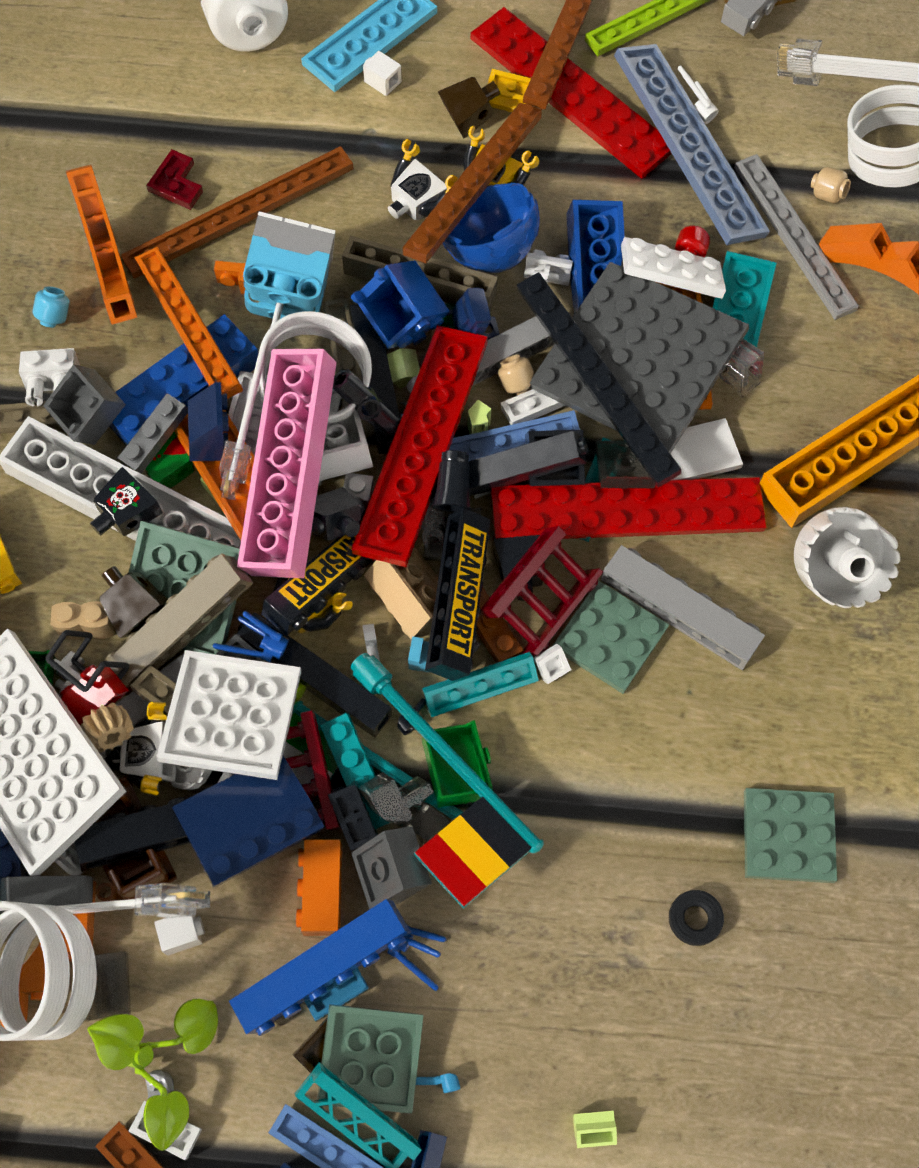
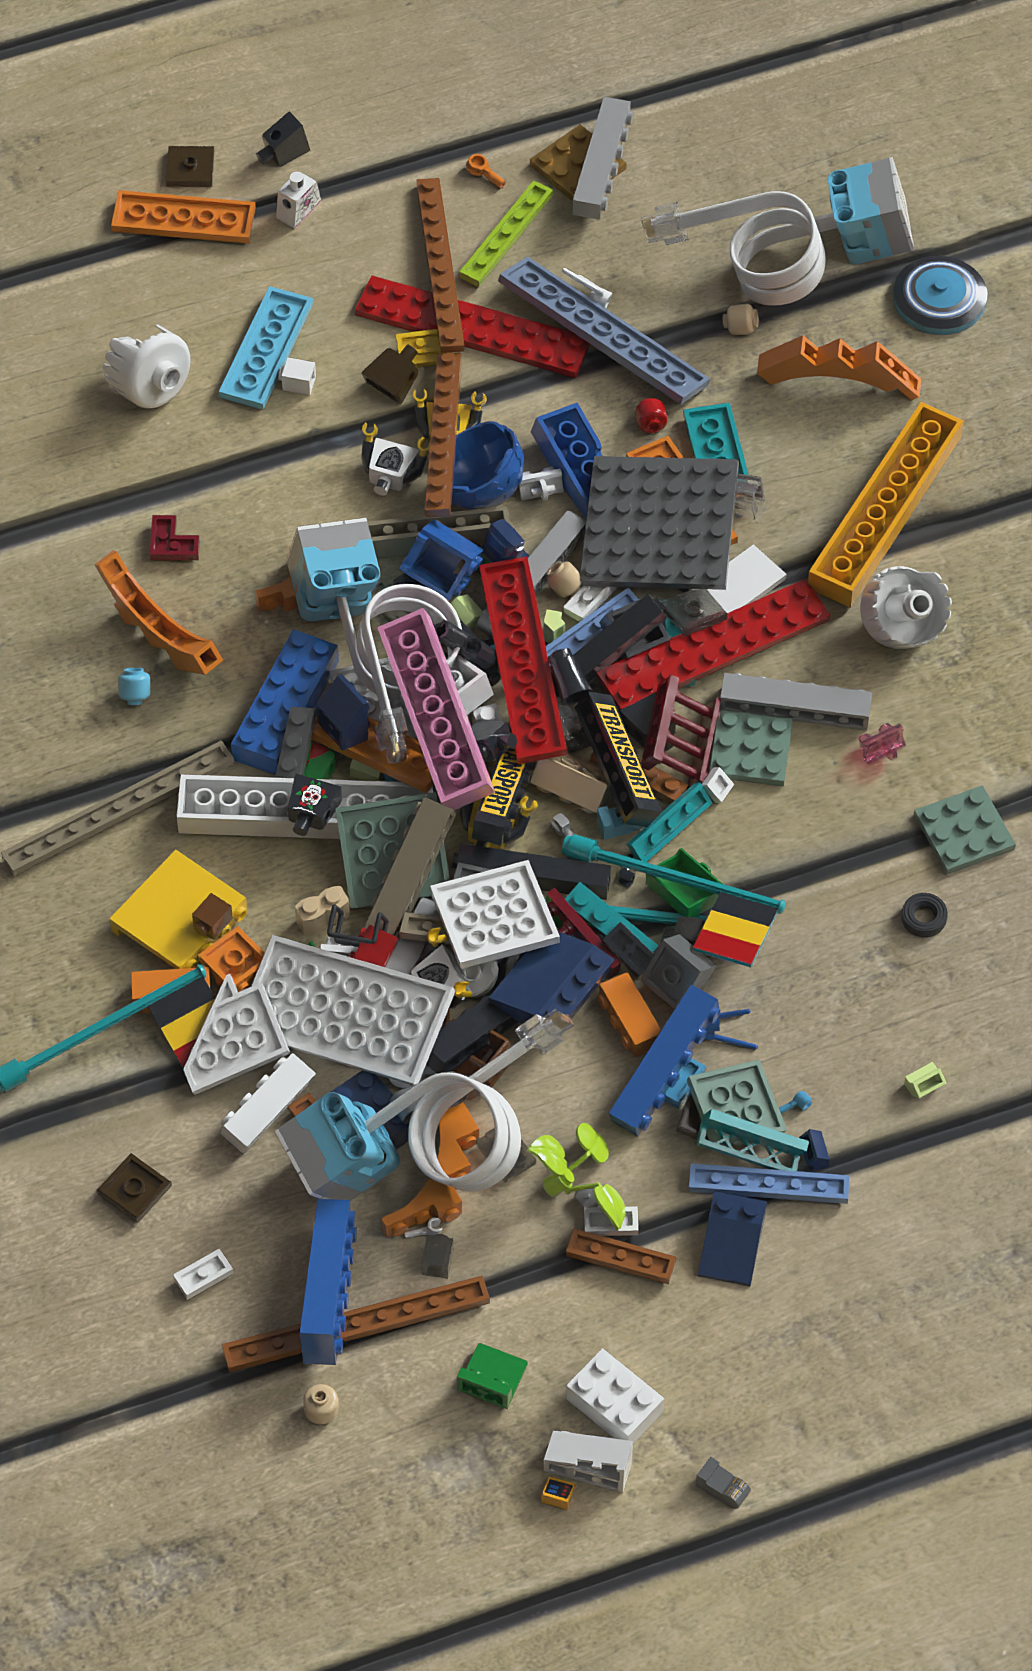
camera: 25 degrees left, 10 degrees down
(44, 371) = (168, 736): white brick -> none
(84, 404) = (225, 744): dark grey container -> none
(107, 726) = (404, 959): tan gear -> none
(129, 600) = (359, 873): dark brown torso -> none
(179, 933) = (539, 1091): white brick -> none
(187, 322) = (264, 645): orange tile -> none
(243, 208) = (245, 542): dark orange plate -> none
(272, 643) = (494, 856): blue plant -> none
(391, 802) = (652, 924): clear smoke brick -> none
(599, 380) = (636, 551): black plate -> none
(672, 267) = (648, 439): white plate -> none
(749, 698) = (882, 744): none -> clear pink hips
(796, 237) = (732, 374): light grey tile -> none

